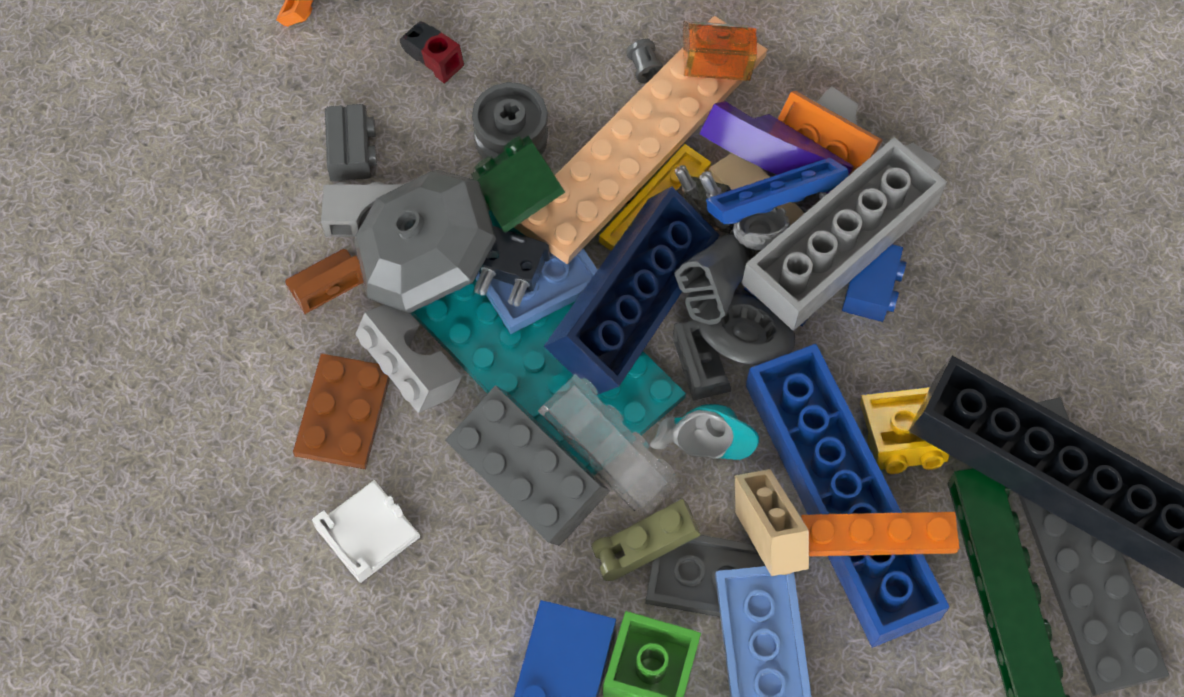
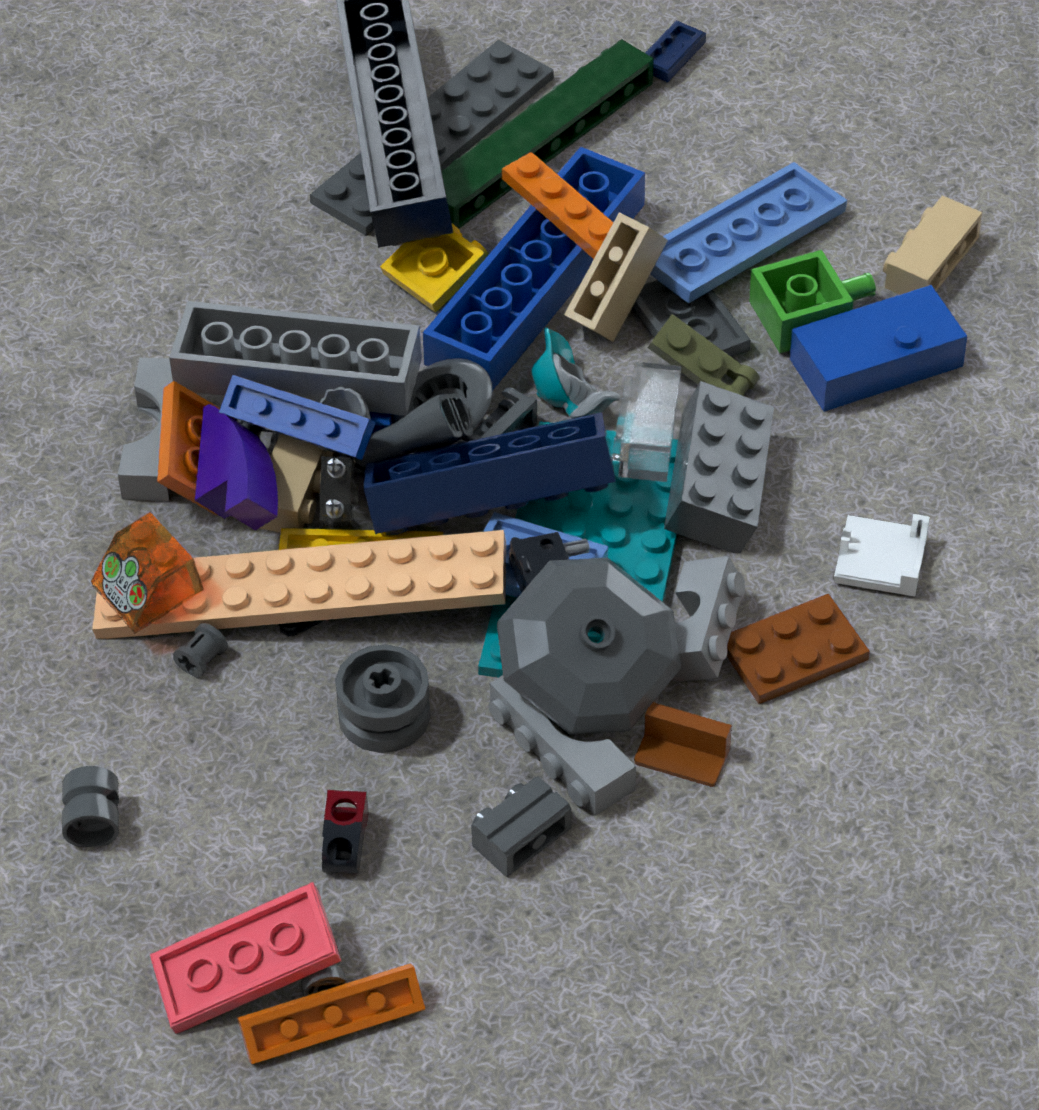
camera: 125 degrees left, 15 degrees down
(517, 182) = (462, 604): dark green slope -> none

